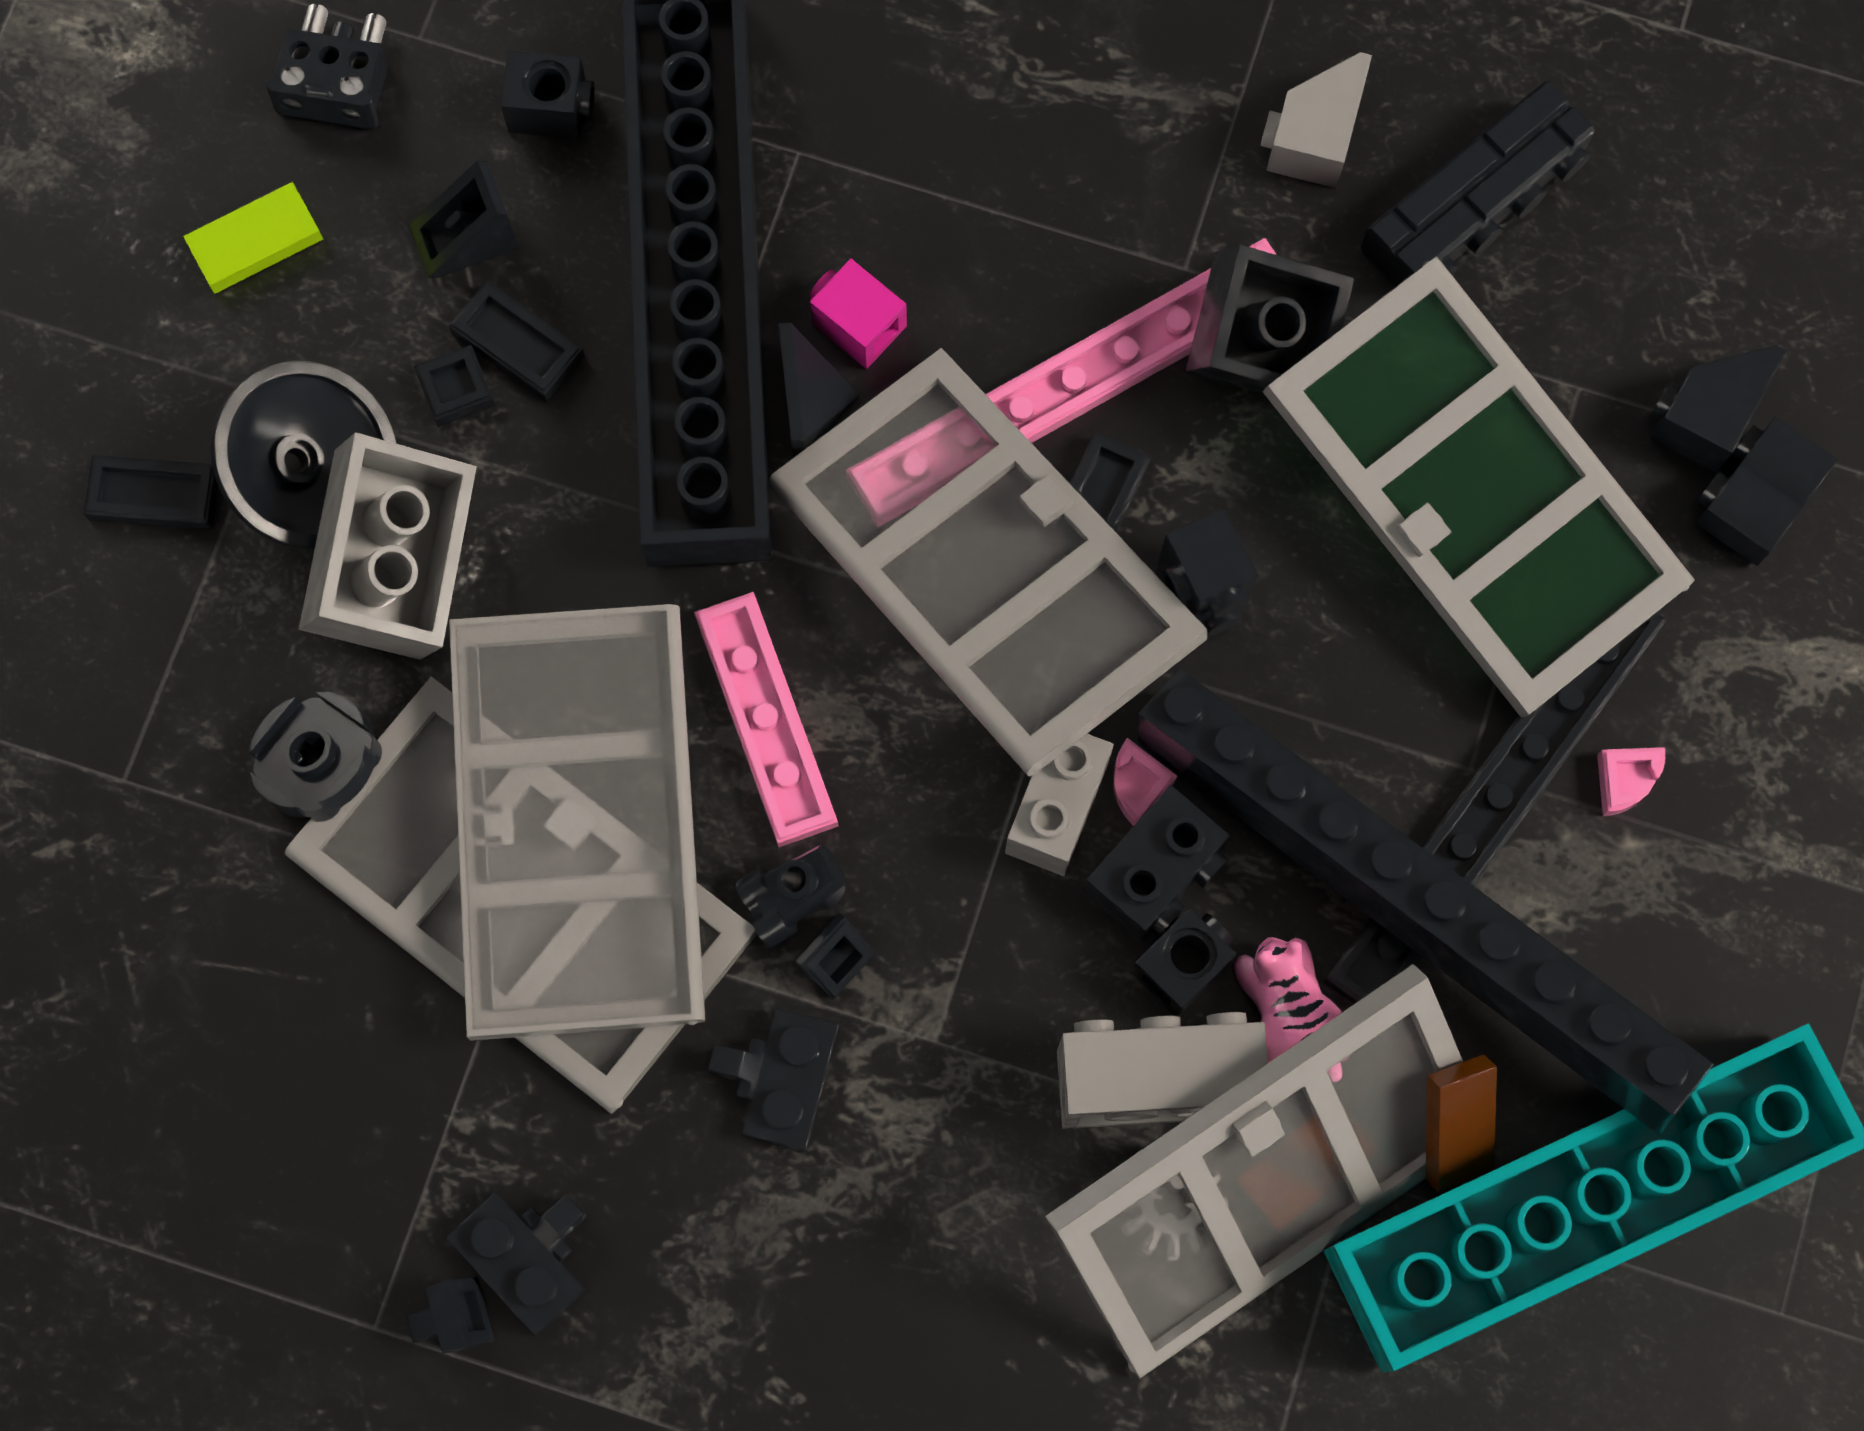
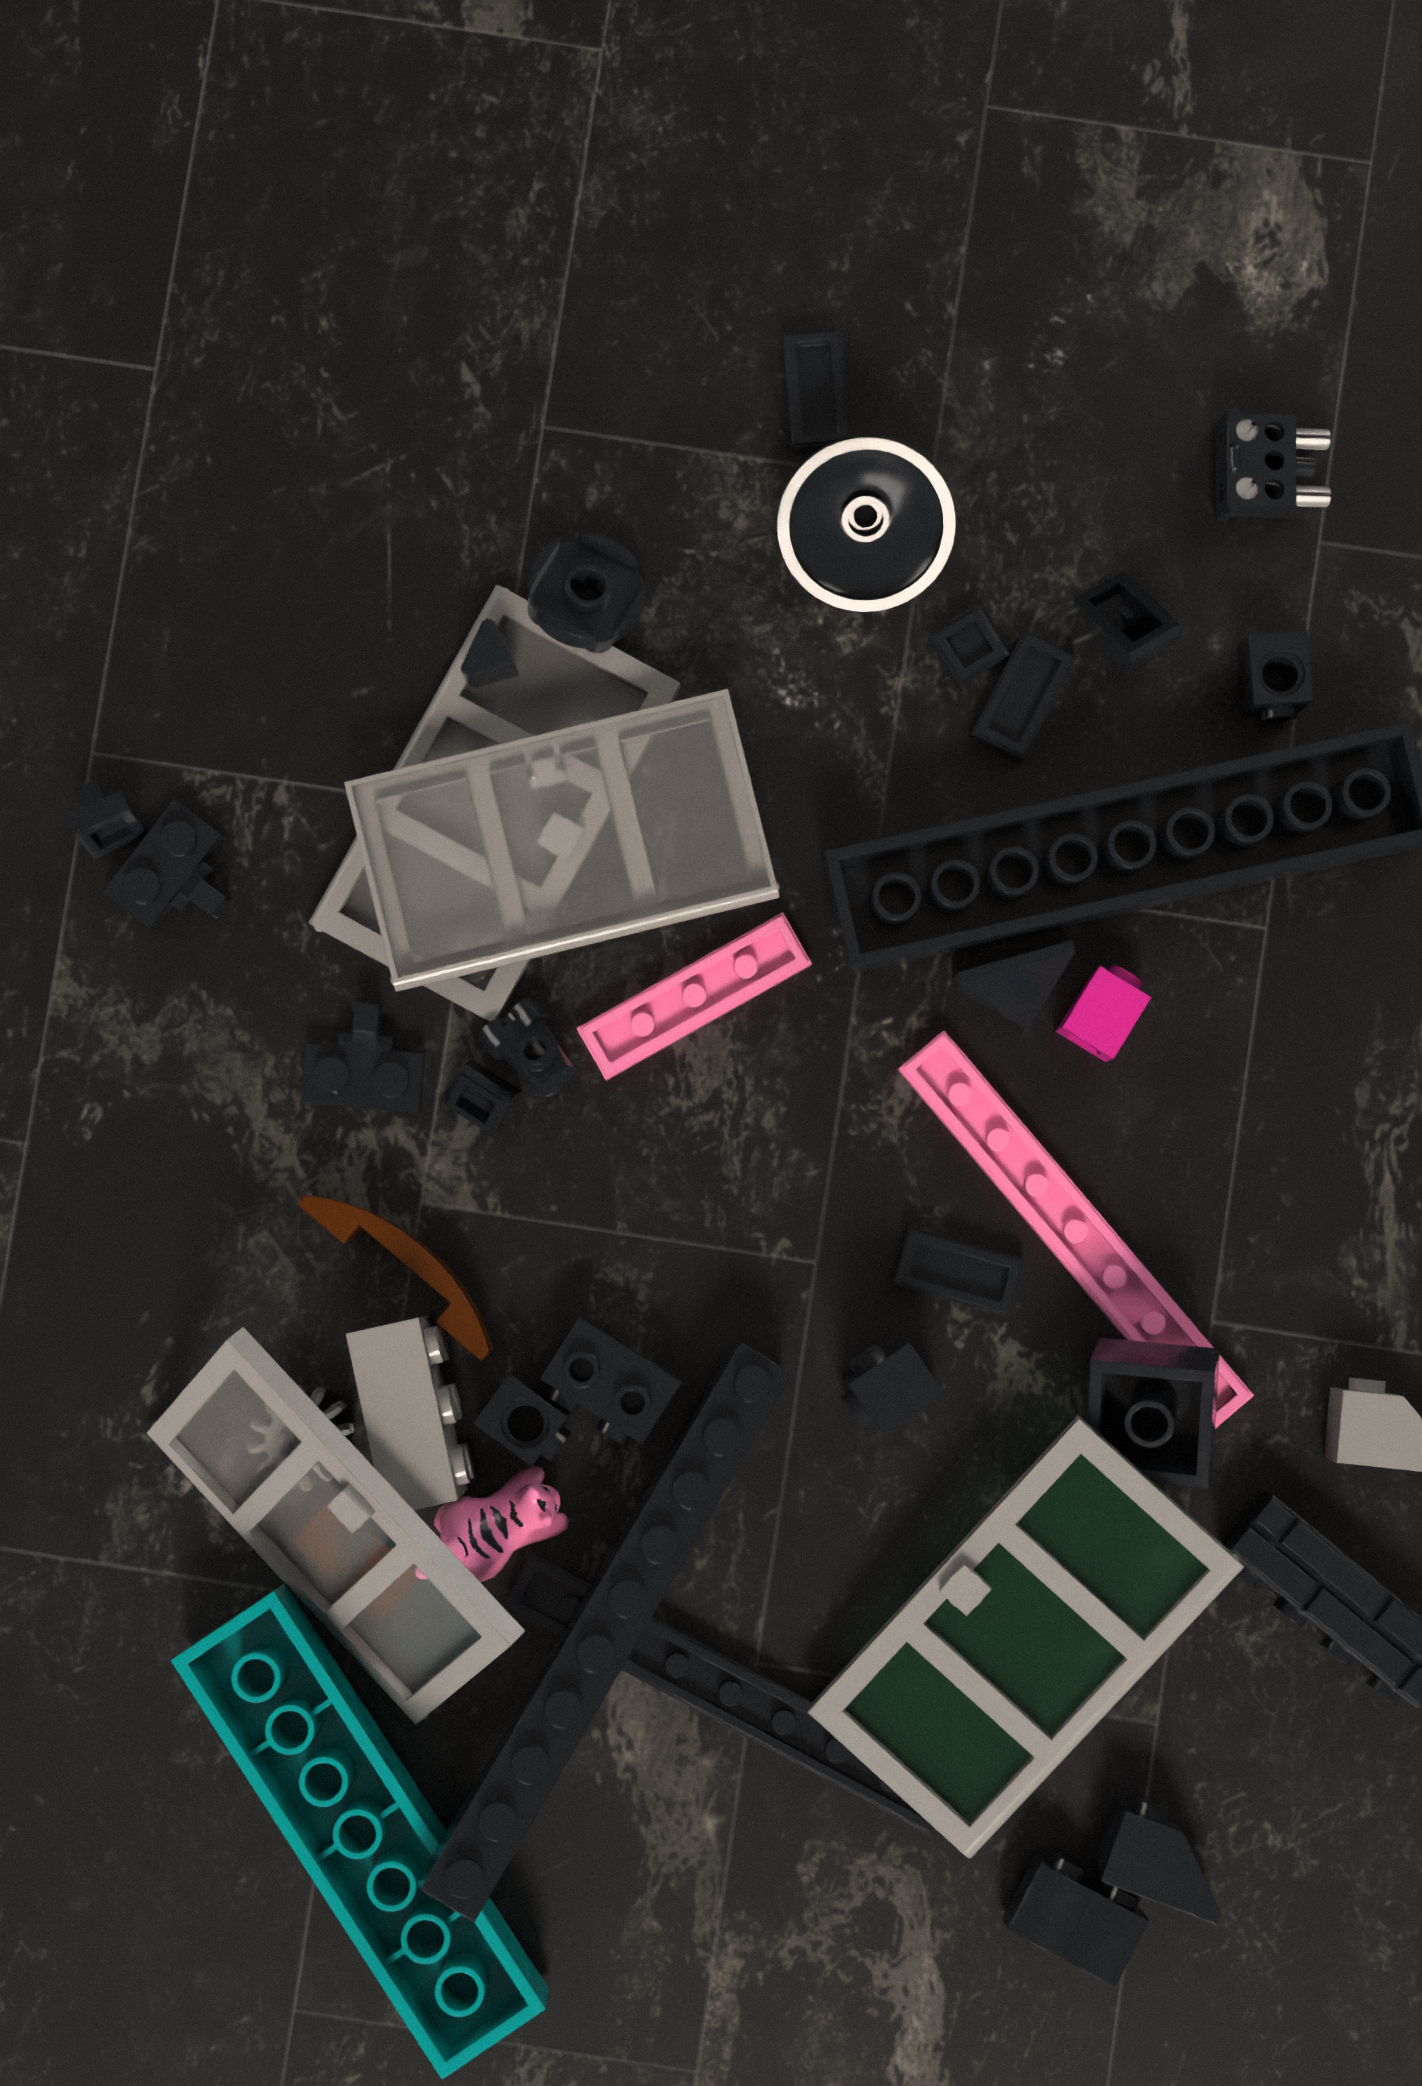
camera: 80 degrees right, 10 degrees up
(253, 237) = (1082, 428): lime tile -> none
(363, 859) = (488, 658): none -> black slope
(388, 547) = (788, 618): light grey brick -> none
(987, 561) = (869, 1176): door -> none
(1059, 805) = (655, 1280): light grey brick -> none
(1062, 1009) = (461, 1317): none -> reddish brown slope
(1138, 781) = (690, 1352): bright pink tile -> none
(1460, 1122) = (408, 1694): reddish brown tile -> none
(1627, 776) = (771, 1814): bright pink tile -> none

